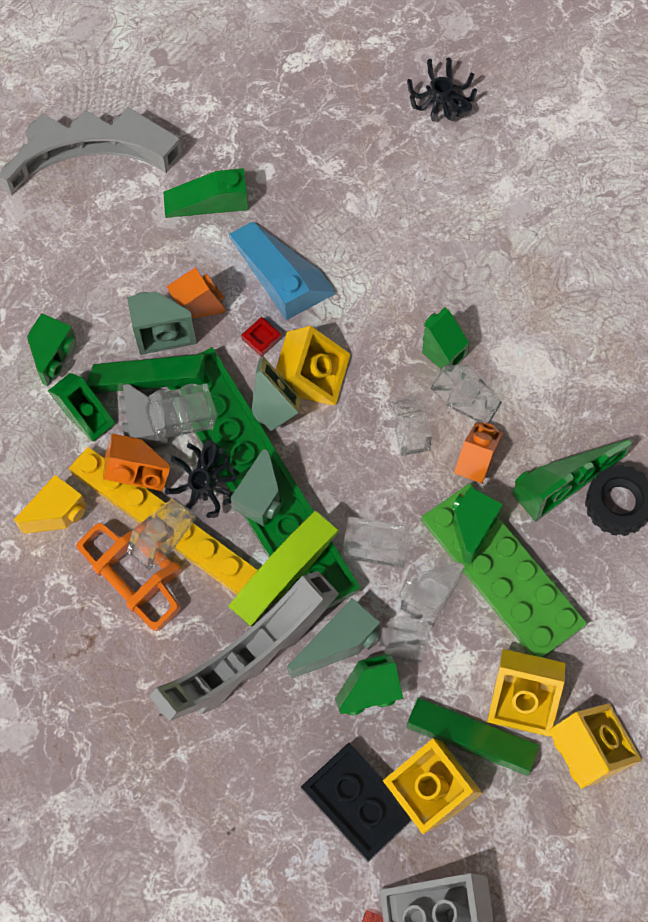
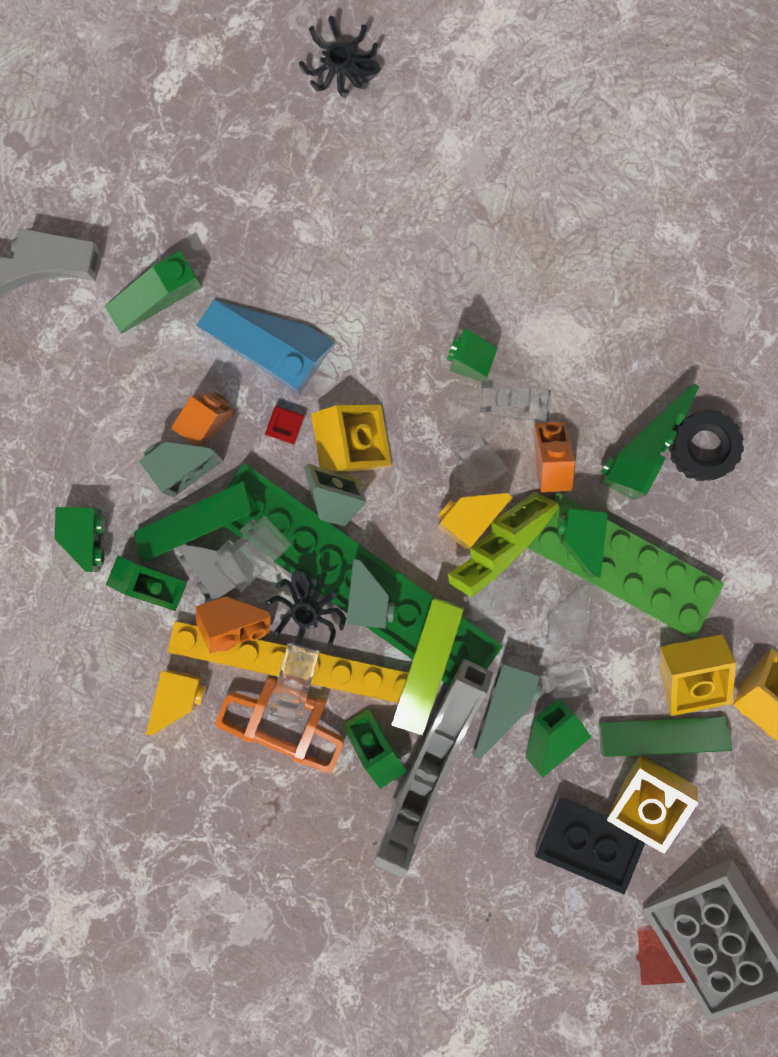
camera: 30 degrees left, 20 degrees up
(202, 626) = (374, 749): none -> green slope
(384, 464) = (471, 516): none -> yellow slope
(408, 497) = (509, 538): none -> lime slope

